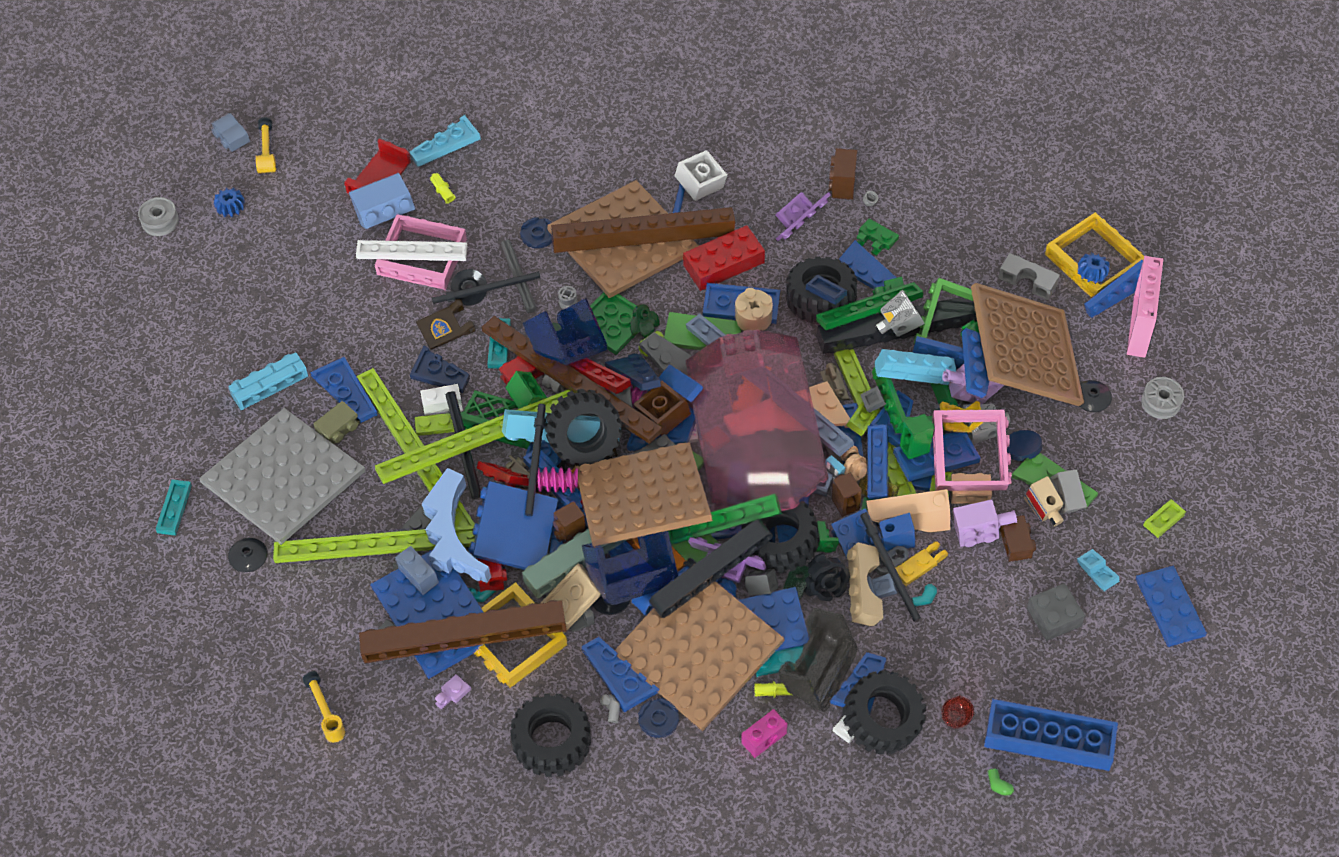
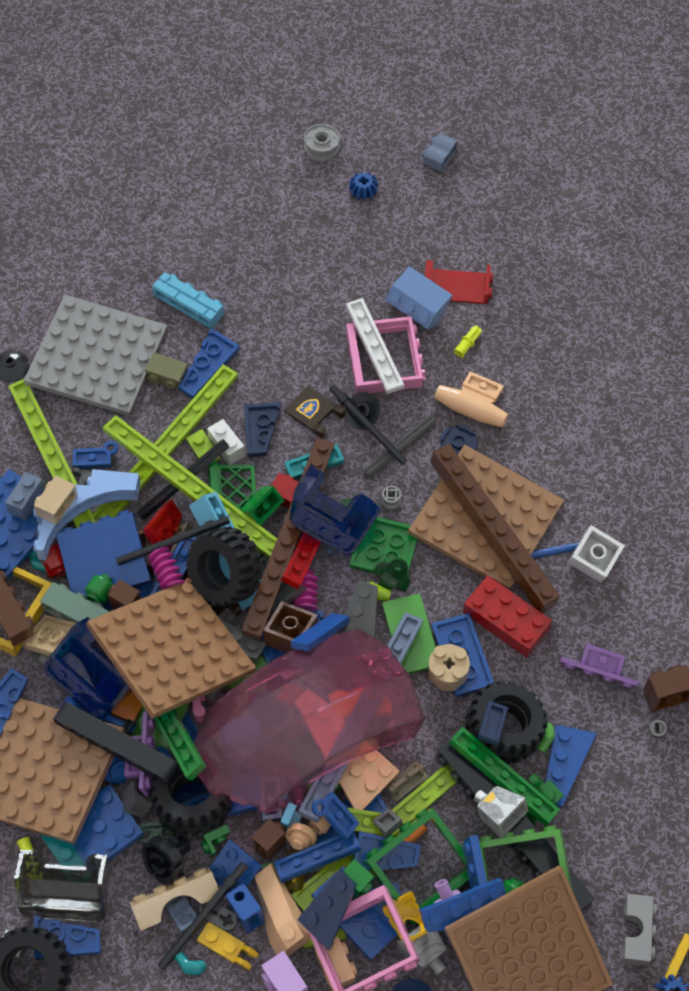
camera: 65 degrees right, 5 degrees up
(173, 507) = (32, 290): teal plate -> none
(265, 162) = (422, 193): yellow piece -> none
(395, 512) = (94, 457): none -> blue hinge
(443, 537) = (55, 500): none -> tan brick
(452, 139) = (532, 327): medium azure wing -> none
(505, 203) = (475, 400): none -> light nougat plate
(547, 539) = (98, 588): none -> green head
(636, 370) = (325, 589): dark blue wing -> none
(855, 426) = (336, 814): none -> blue hinge
(878, 234) = (617, 754): green plate -> none
(913, 366) = (440, 847): medium azure brick -> none
(936, 456) = (327, 910): none -> dark blue wing

